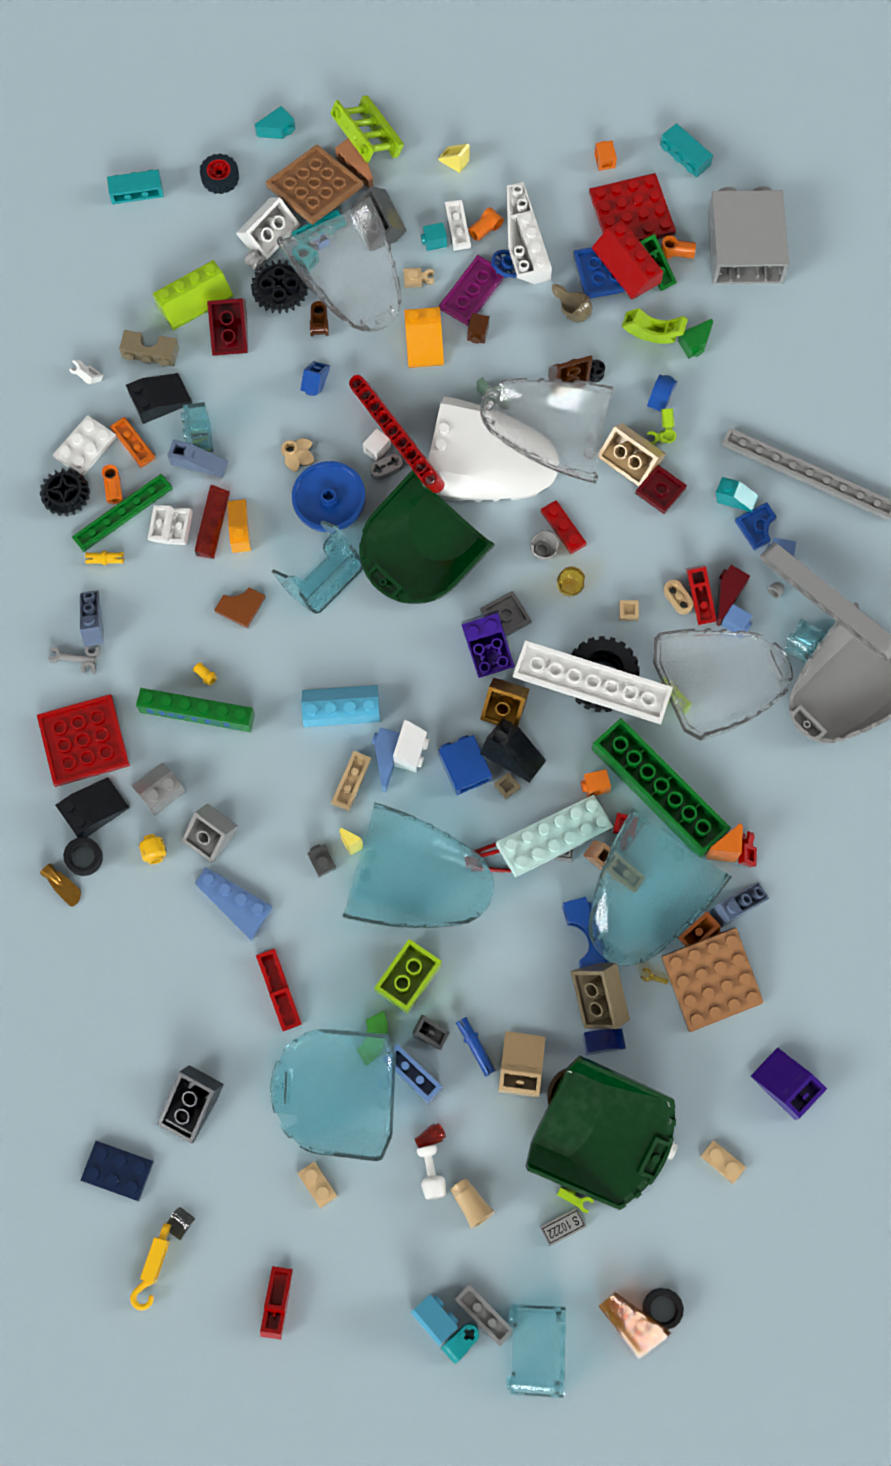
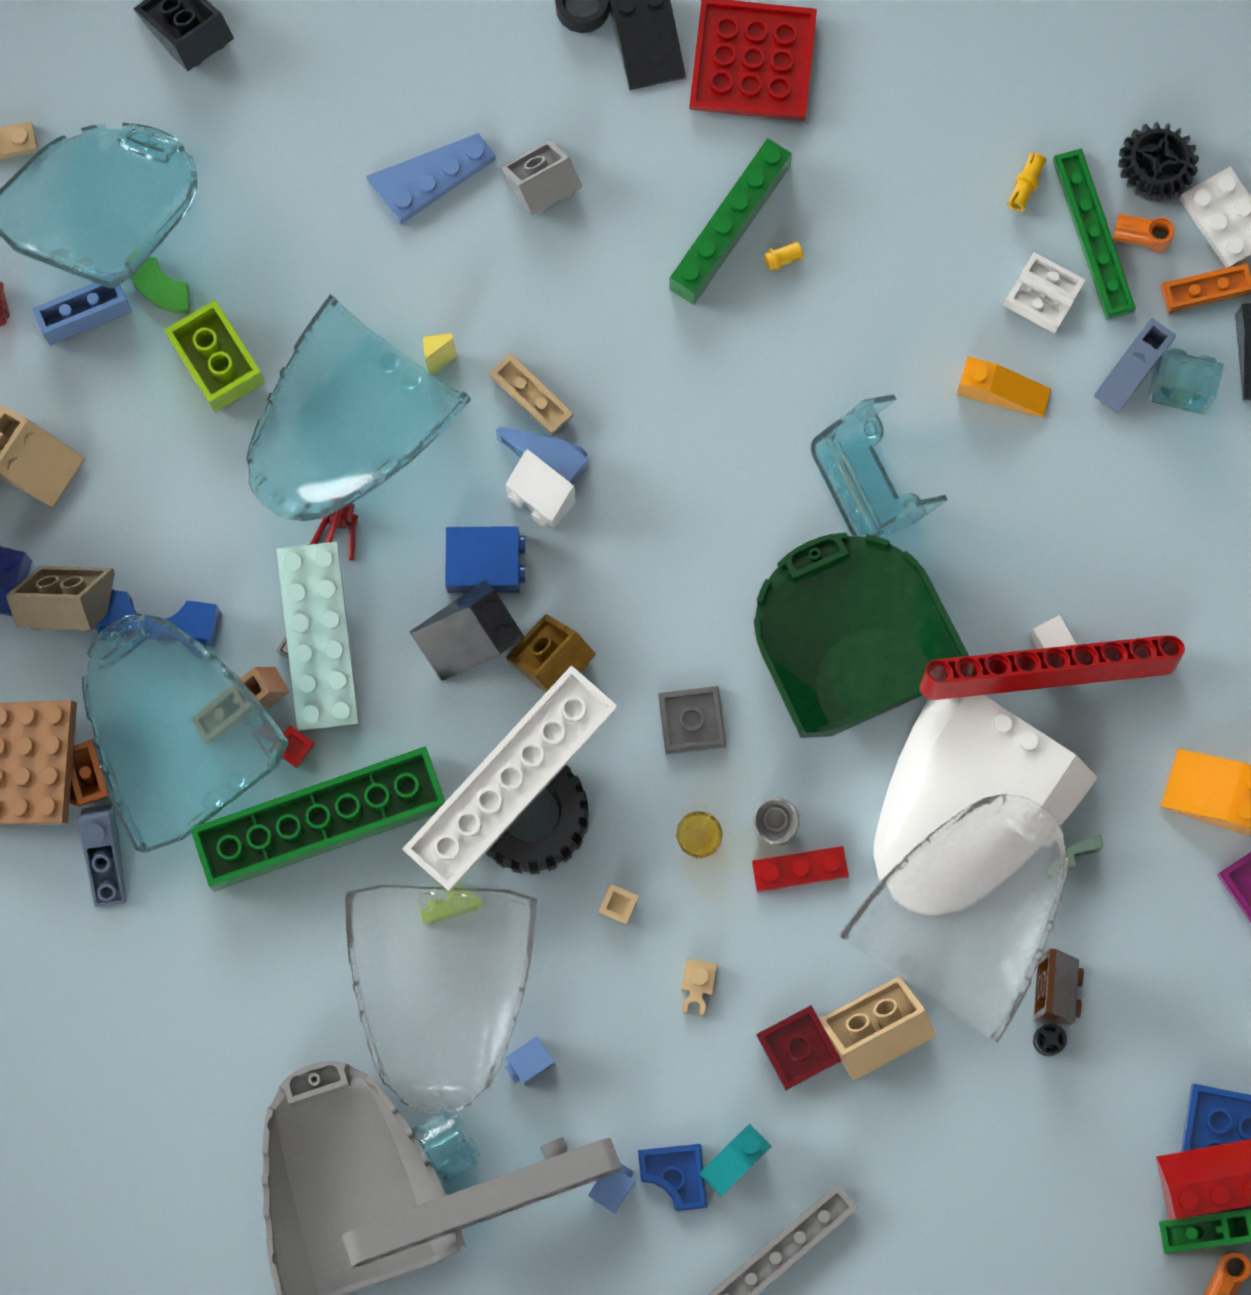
camera: 115 degrees right, 5 degrees up
(88, 661) = (875, 109): light grey bar -> none
(91, 618) = (936, 130): sand blue slope -> none
(152, 849) = (551, 95): yellow head -> none
(158, 788) = (637, 132): light grey slope -> none
(211, 522) = (1024, 352): clear red slope -> none
(240, 608) = (866, 344): dark orange tile -> none
(278, 989) = (276, 188): red slope -> none
(299, 455) = (1086, 522): tan plate -> none
(314, 378) = (1211, 594): blue slope -> none
(321, 860) = (435, 311): dark grey bracket -> none
(330, 494) = (992, 532): blue dish -> none
(340, 706) = (653, 423): medium azure slope -> none
(386, 467) = (1020, 636): light grey beam -> none
(430, 1032) = (129, 357): dark grey slope -> none
(475, 1046) = (94, 408): blue pin -> none
(478, 328) = (1199, 882): reddish brown brick -> none
(488, 644) = (656, 669): dark purple slope -> none
(507, 786) = (424, 604): dark tan plate -> none
(574, 305) = (1180, 1057): dark tan piece -> none
(596, 783) = (371, 732): orange brick -> none
(650, 555) = (698, 980): none -> tan plate
(652, 329) = (1089, 1166): lime arch -> none
(653, 977) = (63, 688): clear yellow hand -> none
(662, 392) = (965, 1127): blue brick -> none
(668, 435) = (888, 1104): lime bar -> none
(678, 598) = (607, 990): tan plate -> none
(695, 339) = (1041, 1231): green slope -> none
(701, 594) = (598, 1026): red slope -> none
(728, 847) = (186, 872): orange slope -> none
(730, 587) = (585, 1075): dark red slope -> none
(749, 852) = (171, 904): red plate -> none

